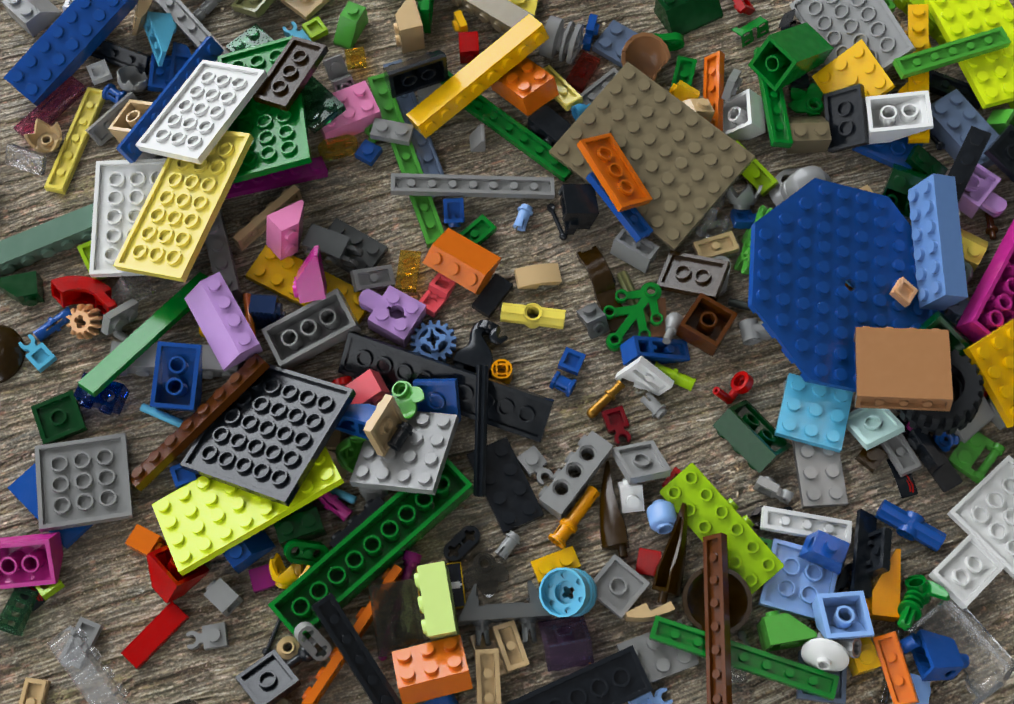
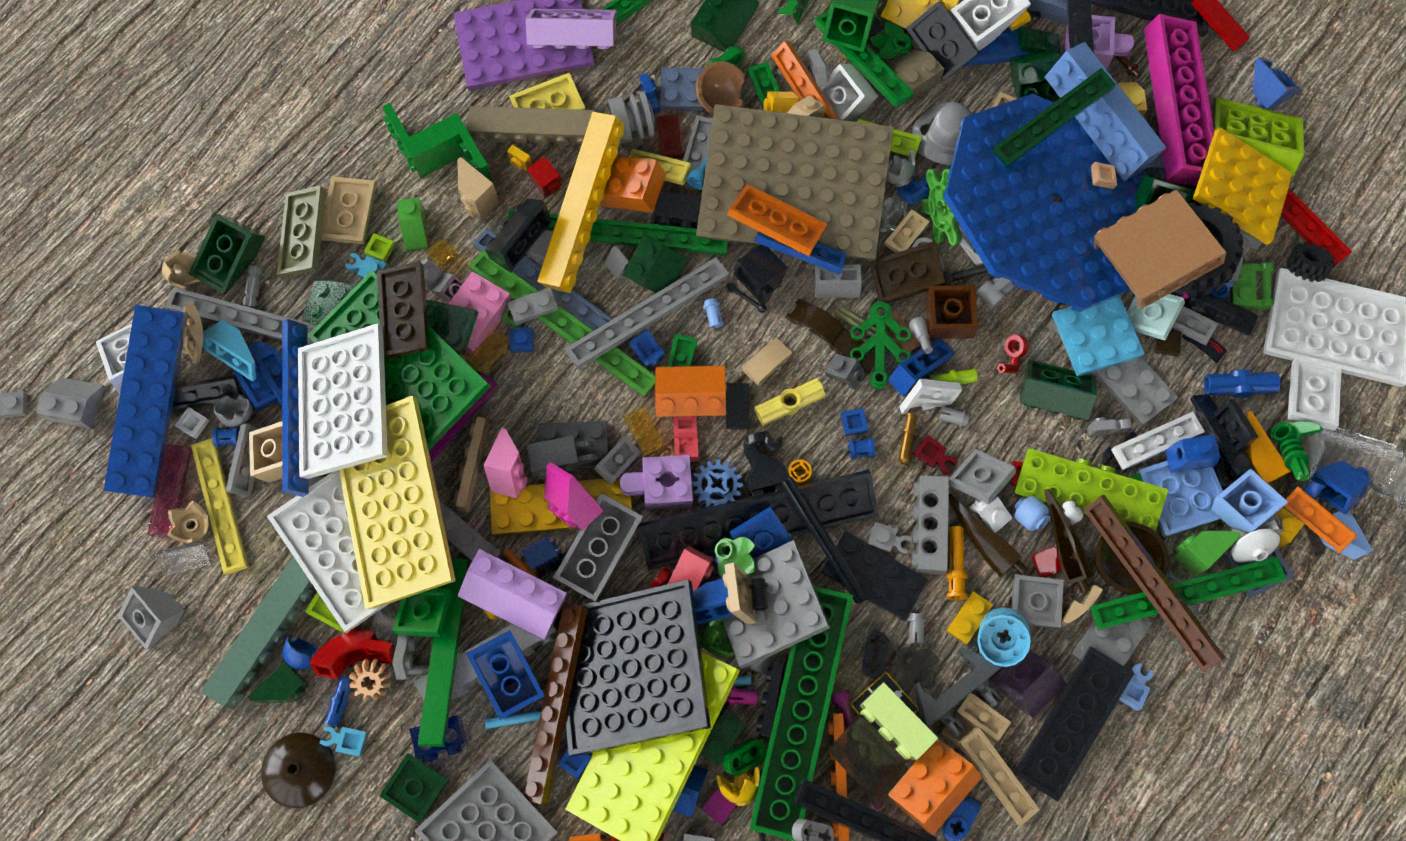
camera: 30 degrees left, 5 degrees up
(49, 269) = (298, 653): none -> blue hair
(153, 296) = (423, 613): none -> green plate
(502, 154) = (654, 265): none -> dark green slope
(693, 535) = (1072, 512): none -> white arm
(885, 217) = (1053, 117): none -> dark green plate

